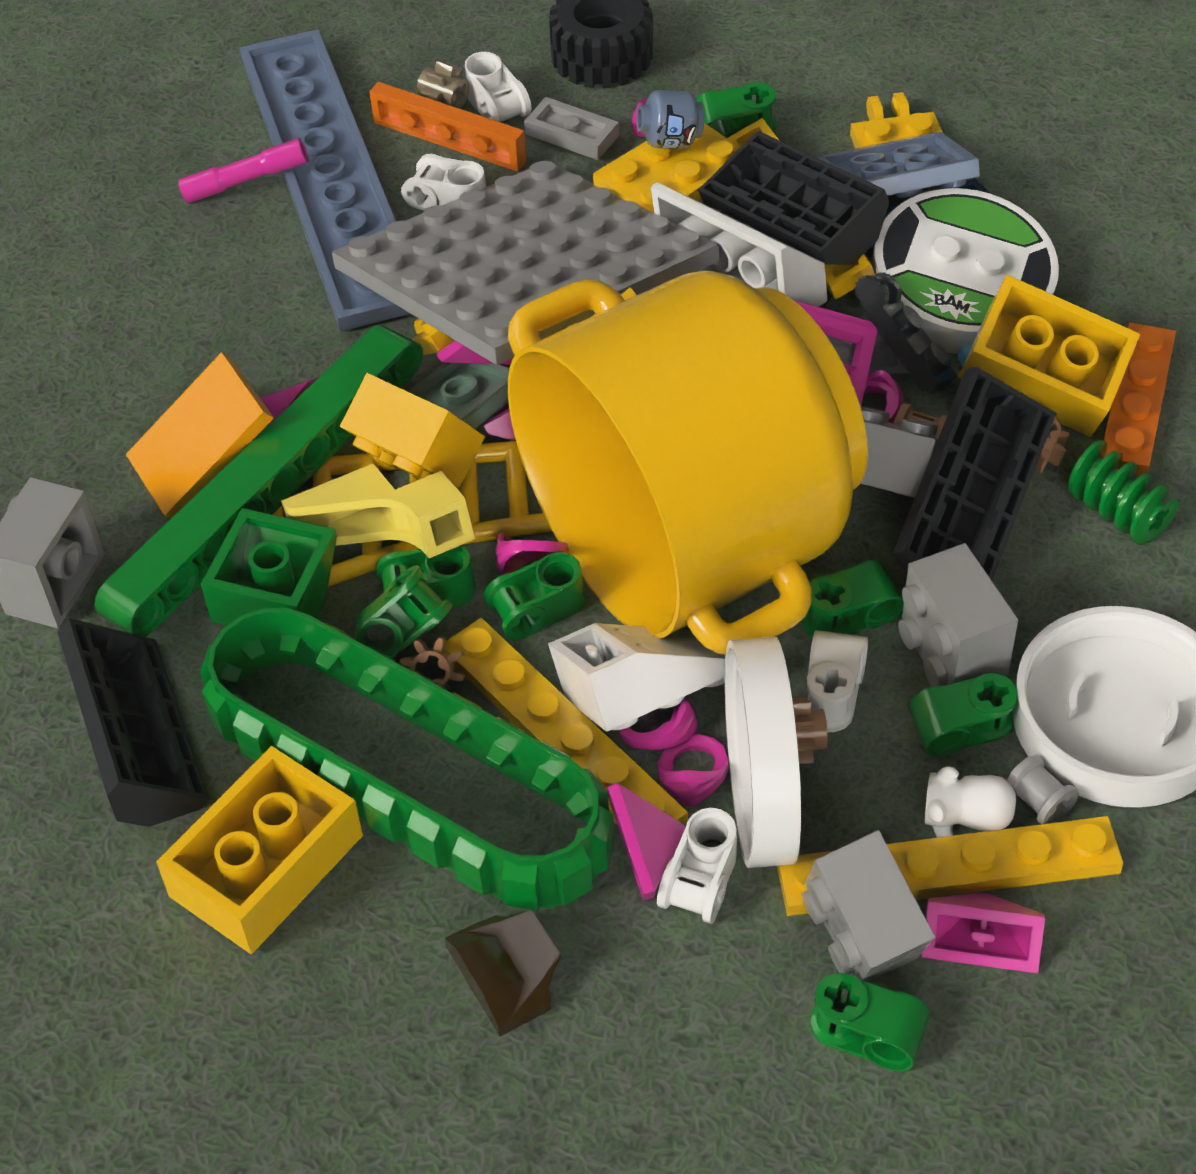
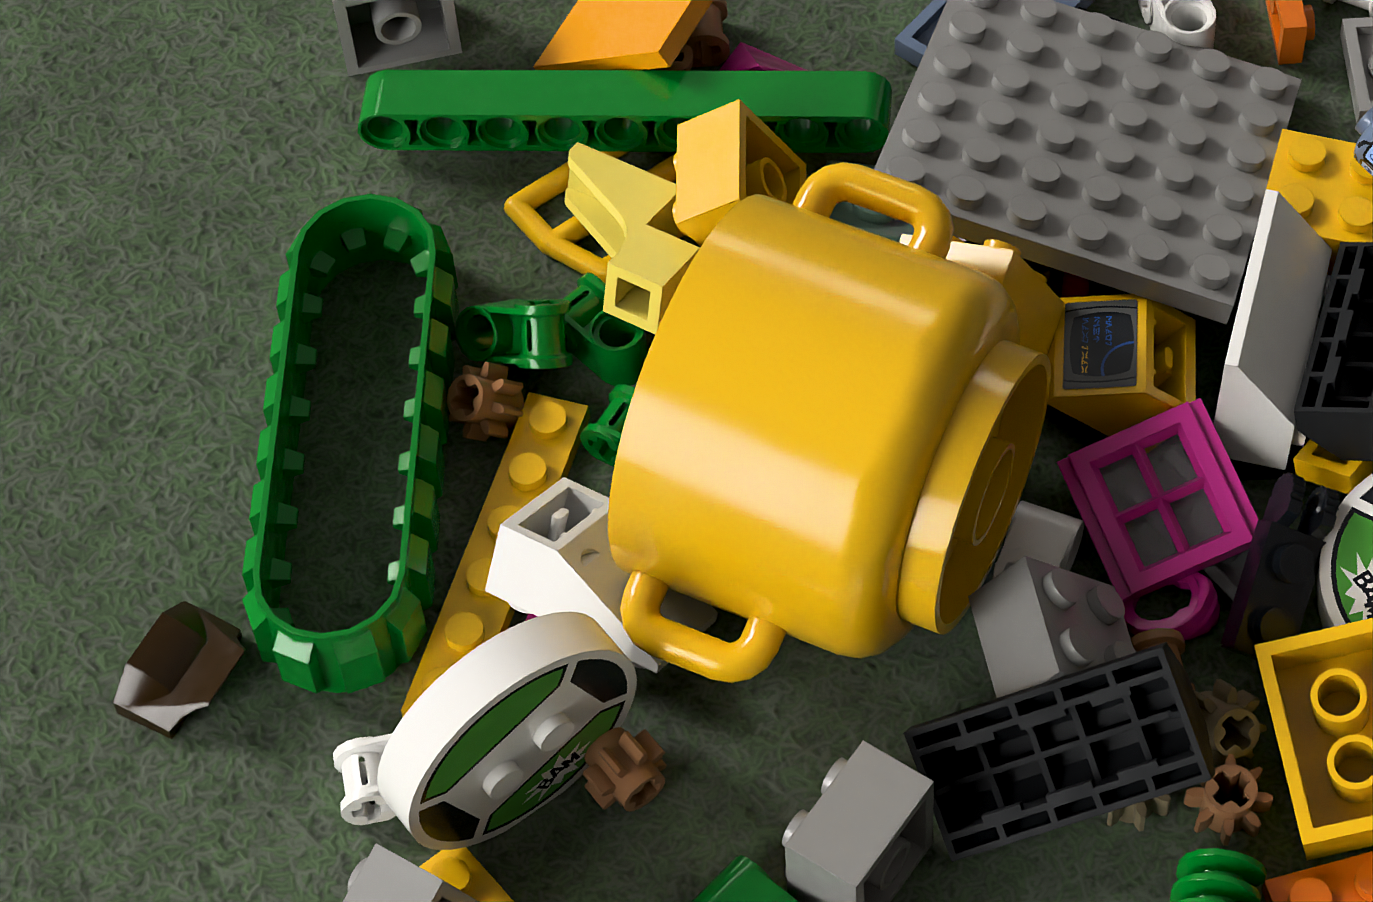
camera: 60 degrees right, 5 degrees up
(133, 724) = (253, 197): black piece -> none
(260, 849) = (170, 389): yellow brick -> none
(269, 565) = (498, 195): green slope -> none
(647, 836) = (382, 689): dark pink slope -> none
(835, 675) = (732, 765): white piece -> none
(857, 599) = (842, 722): green piece -> none

